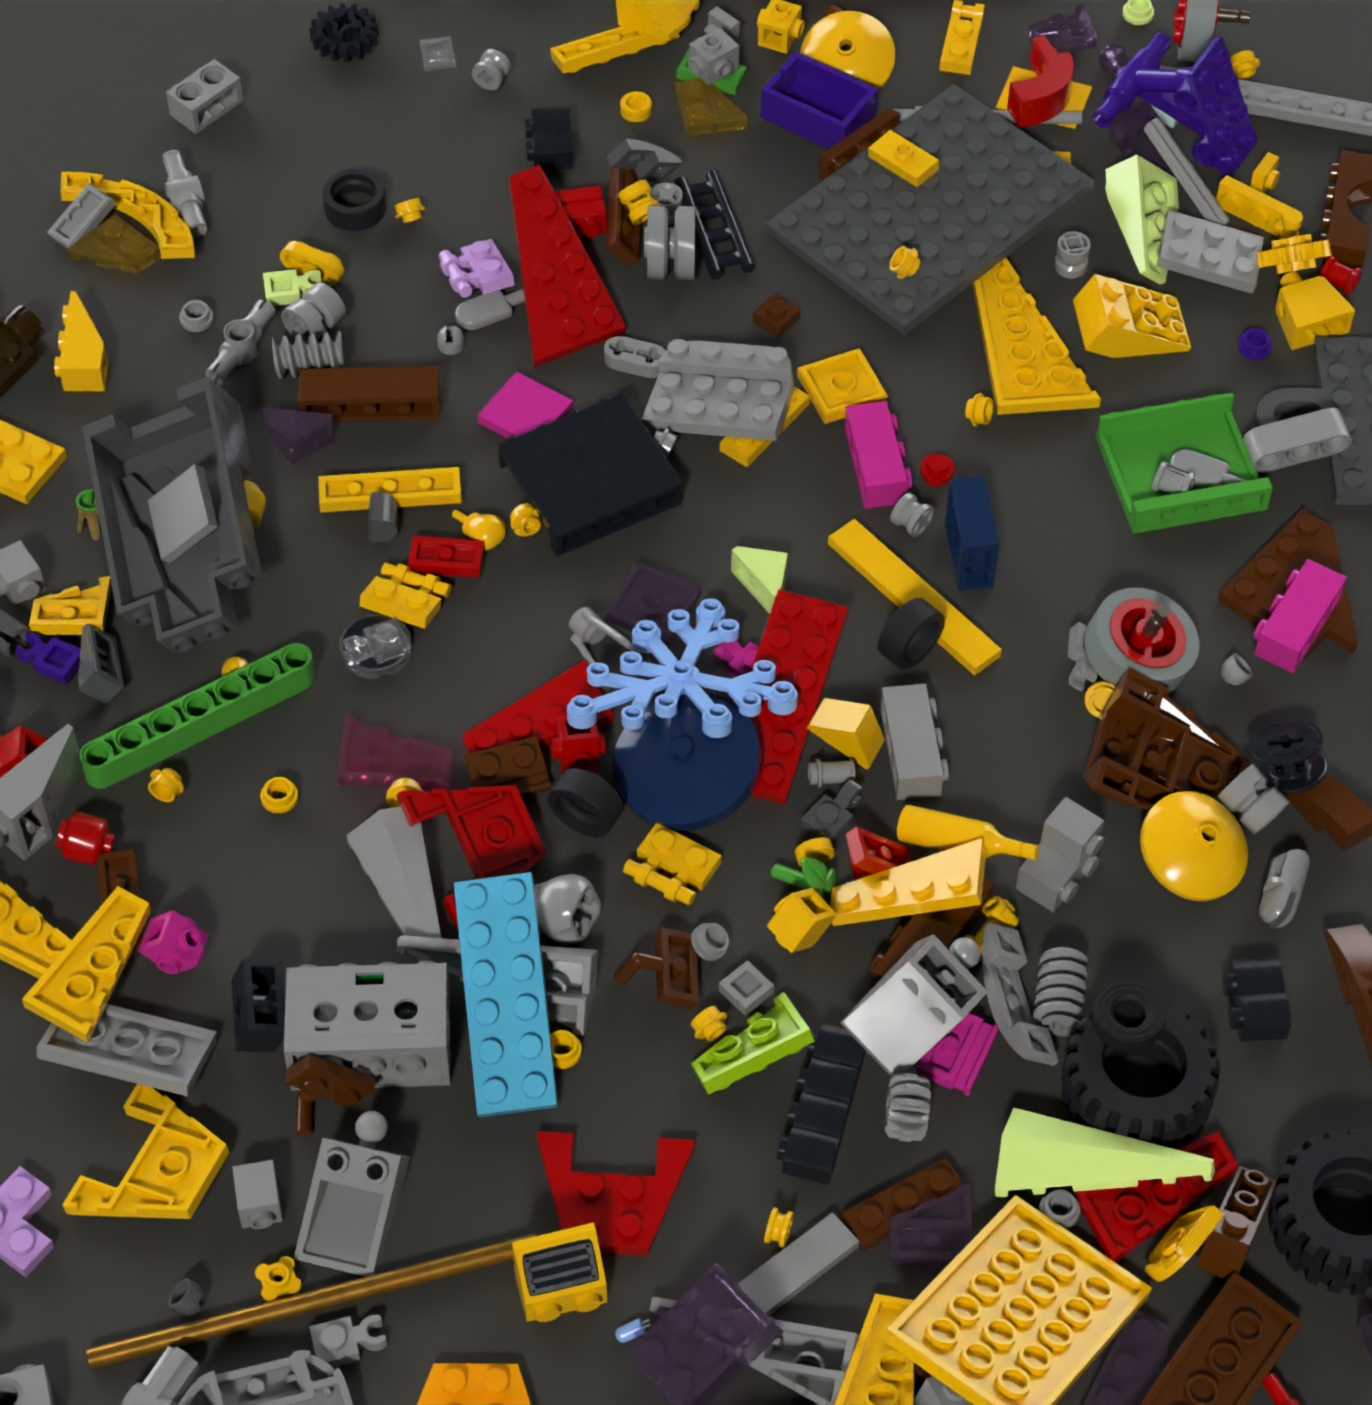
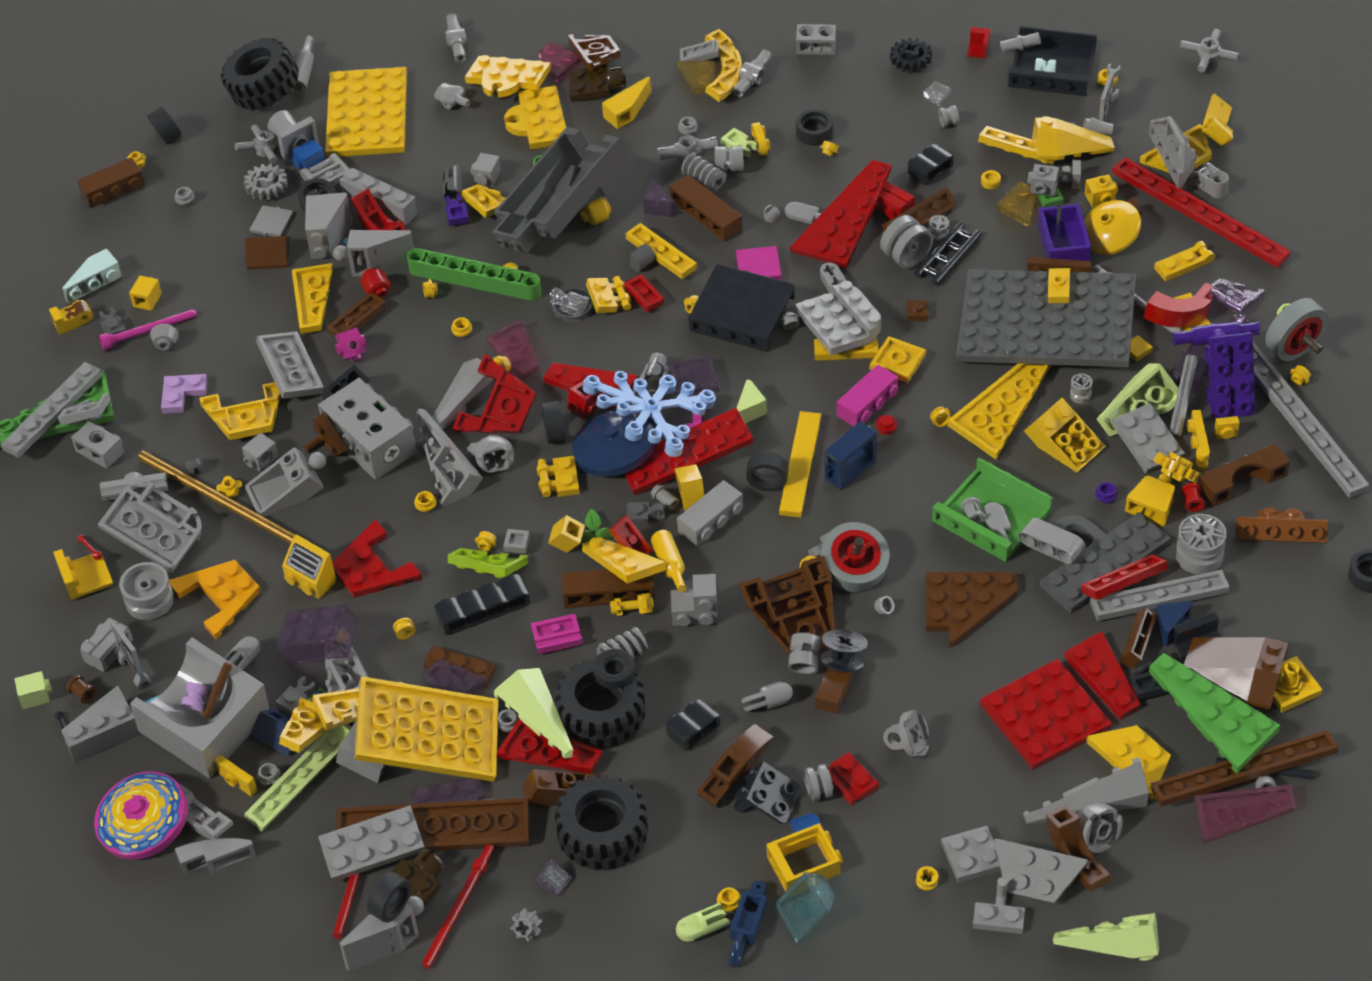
camera: 55 degrees right, 5 degrees down
(87, 970) = (312, 324): yellow wing -> none
(99, 669) = (457, 232): dark grey slope -> none
(182, 513) = (561, 190): light grey tile -> none
(339, 1341) = (219, 525): light grey plate -> none
(482, 528) = (674, 295): yellow piece -> none
(486, 269) = (824, 194): lavender plate -> none
(505, 995) = (424, 459): medium azure plate -> none
(510, 764) = (549, 387): reddish brown plate -> none
(637, 199) = (921, 212): yellow wheel -> none
(646, 158) = (952, 204): dark grey slope -> none
(674, 967) = (501, 509): reddish brown plate -> none
(710, 941) = (528, 513): light grey plate -> none
(800, 1264) = (394, 648): light grey tile -> none
(816, 848) = (610, 516): yellow tile -> none
(904, 262) = (987, 326): yellow plate -> none
(907, 1107) = (503, 631): light grey gear -> none
(912, 515) = (842, 426): light grey wheel -> none
(917, 1002) = (549, 595): light grey slope -> none
(1001, 960) = (606, 628): light grey slope -> none
(1181, 1241) = (520, 767): yellow tile -> none
(1182, 857) = (753, 663): yellow dish -> none
(1298, 615) = (933, 604): dark pink brick -> none

